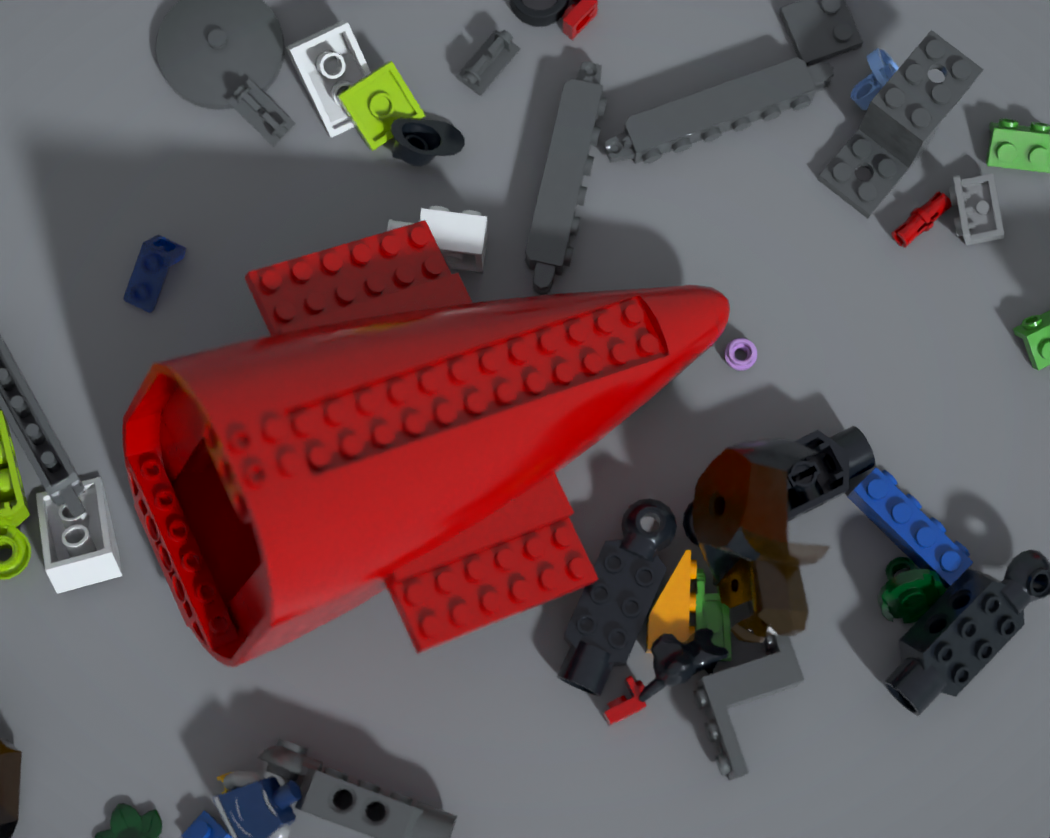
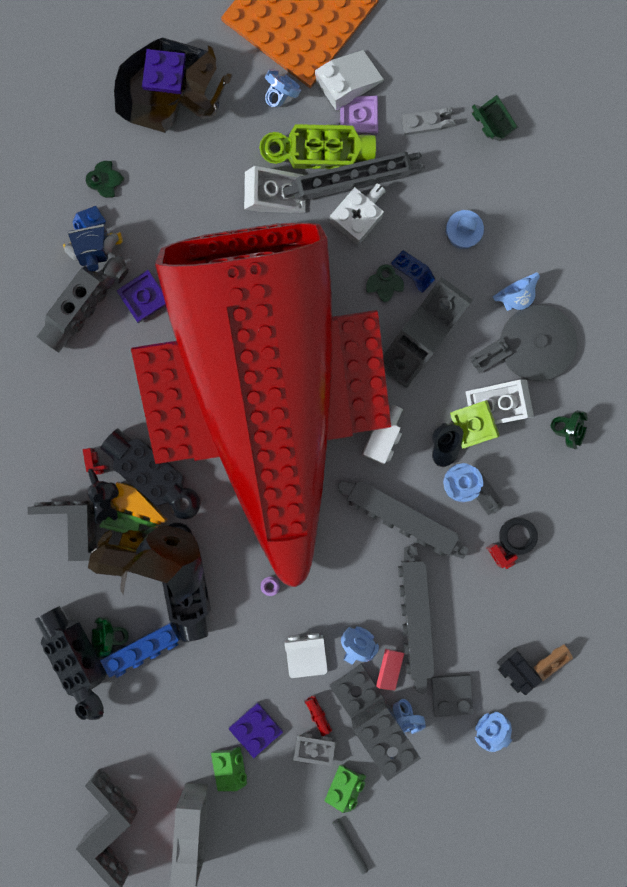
camera: 100 degrees right, 10 degrees up
(62, 211) = (464, 229): none -> light blue tile
(68, 376) = (361, 205): none -> white brick
(147, 96) = (519, 294): none -> light blue hat
(191, 312) = (385, 285): none -> dark green plate
(247, 216) = (425, 332): none -> dark grey bracket
(318, 705) = (142, 296): none -> dark purple plate
(480, 94) = (463, 482): none -> light blue tile
(790, 185) = (358, 645): none -> light blue tile
(812, 129) = (390, 669): none -> coral tile
(832, 264) = (306, 655): none -> white bracket
(977, 311) = (255, 729): none -> dark purple plate

